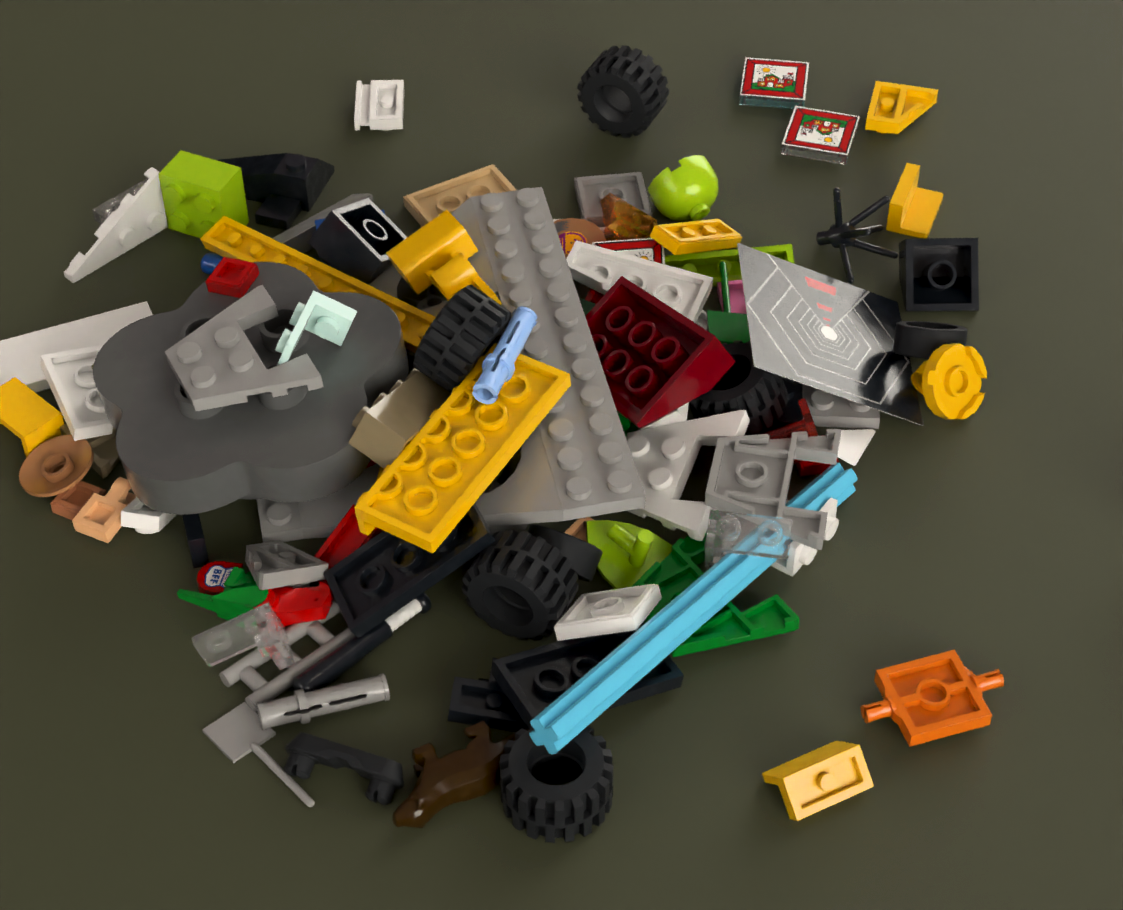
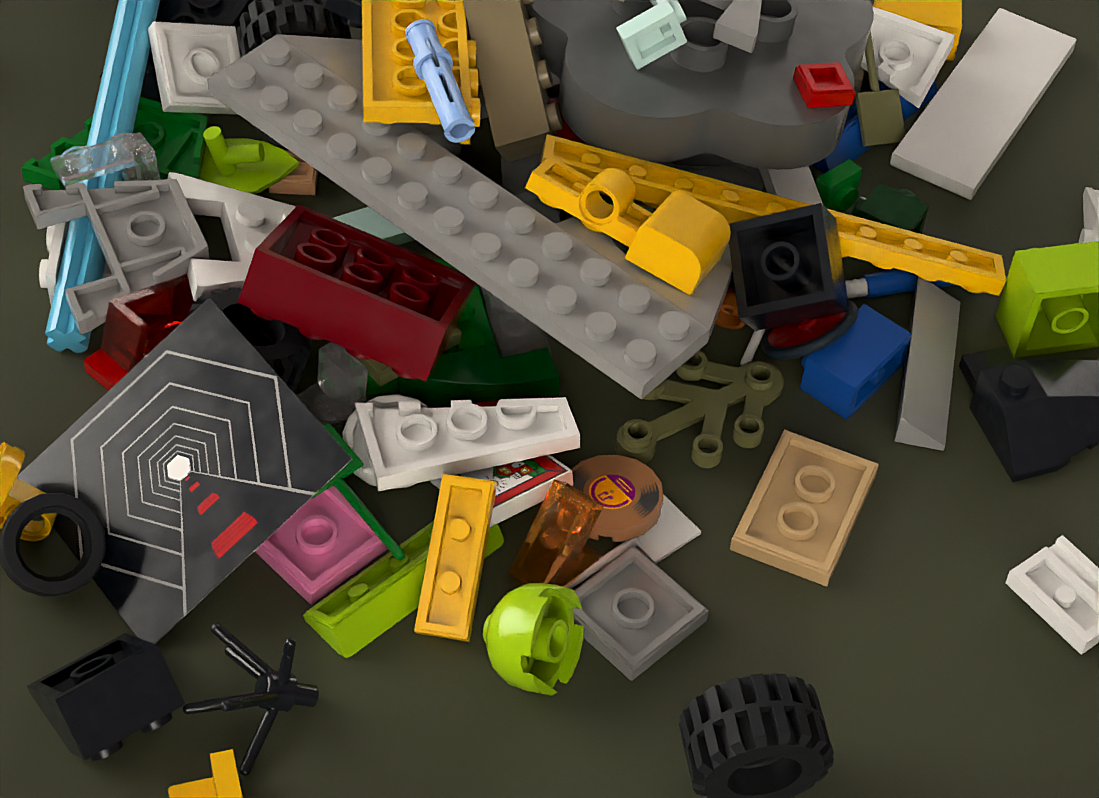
camera: 140 degrees right, 5 degrees up
(460, 336) = (506, 94): black tyre -> none
(854, 444) = (86, 385): white sticker -> none

